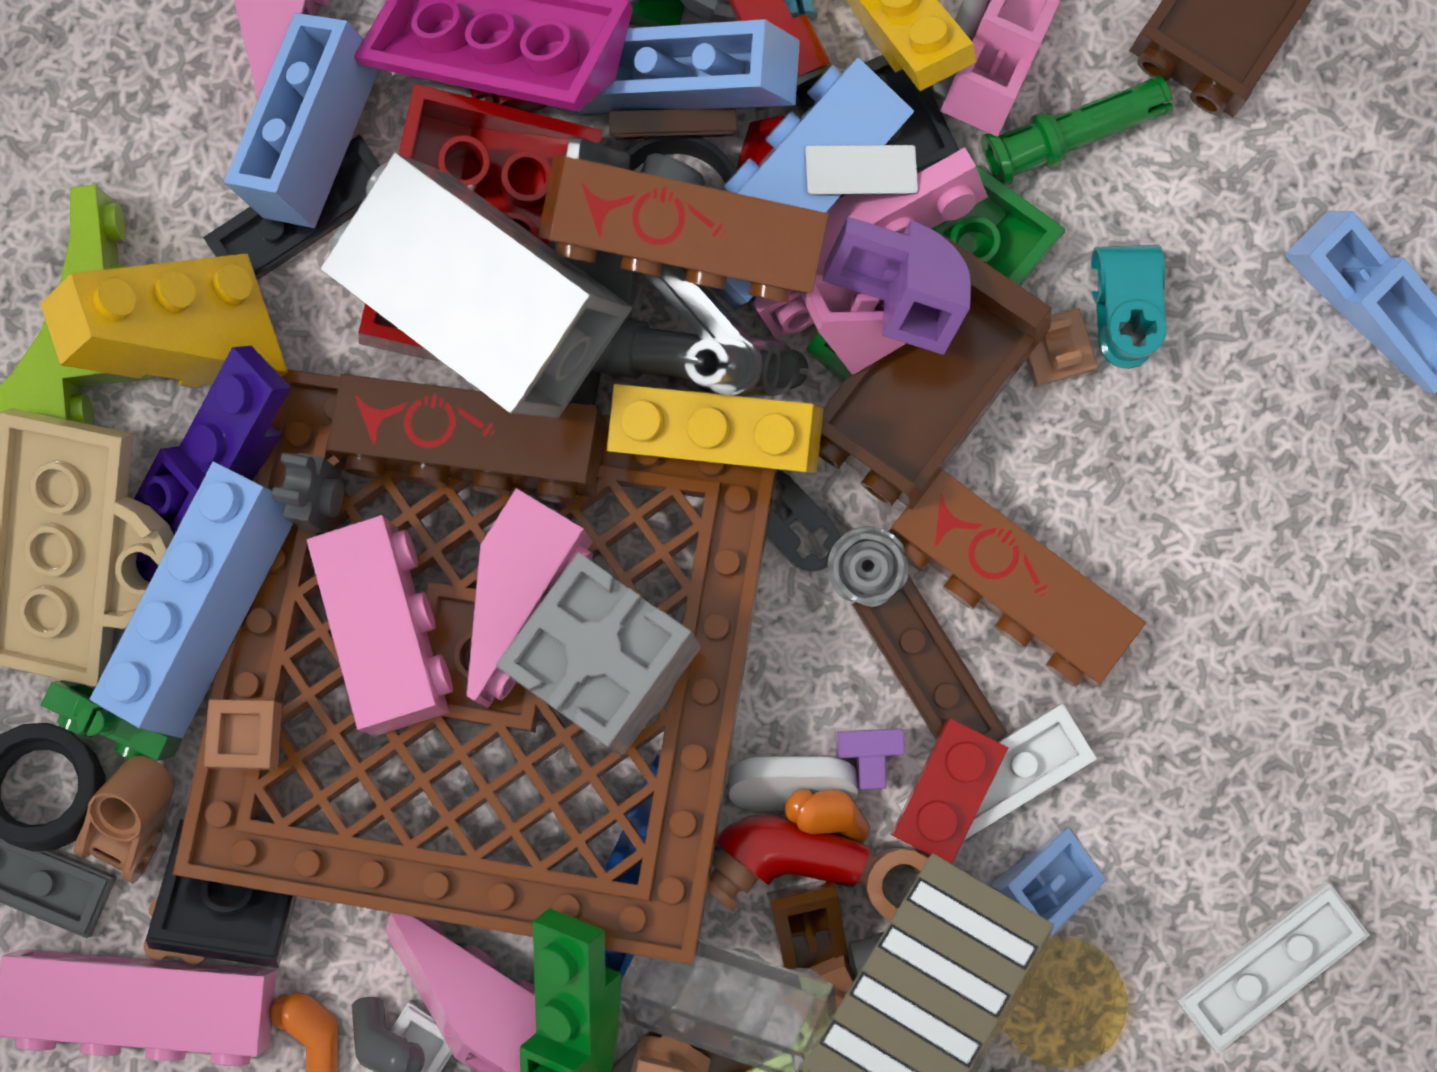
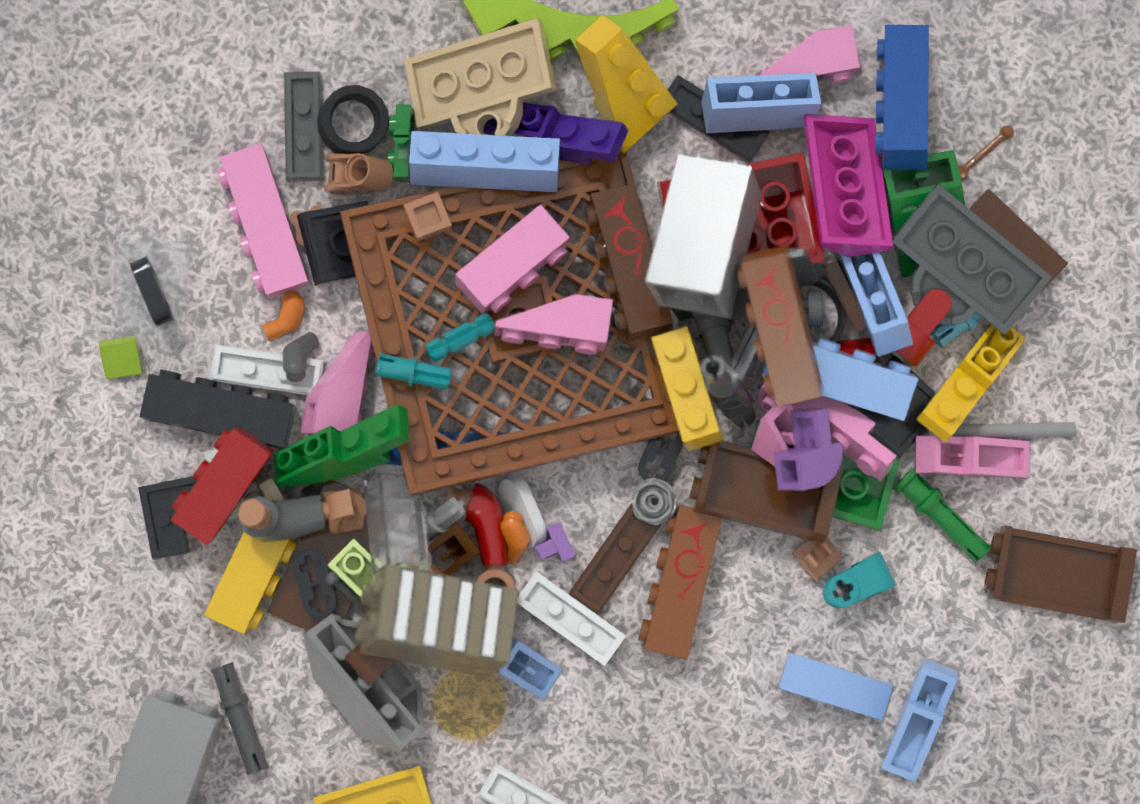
camera: 65 degrees right, 0 degrees up
(310, 491) = (566, 194): dark grey plate -> none
(468, 766) = (460, 337): none -> teal axle
(490, 871) = (413, 371): none -> teal axle
(600, 654) = (545, 379): light grey piece -> none
(749, 920) = (443, 517): none -> light grey axle
(861, 169) = (859, 406): white sticker -> none
(949, 790) = (554, 594): red plate -> none
(1276, 412) = (835, 686): none -> light blue slope

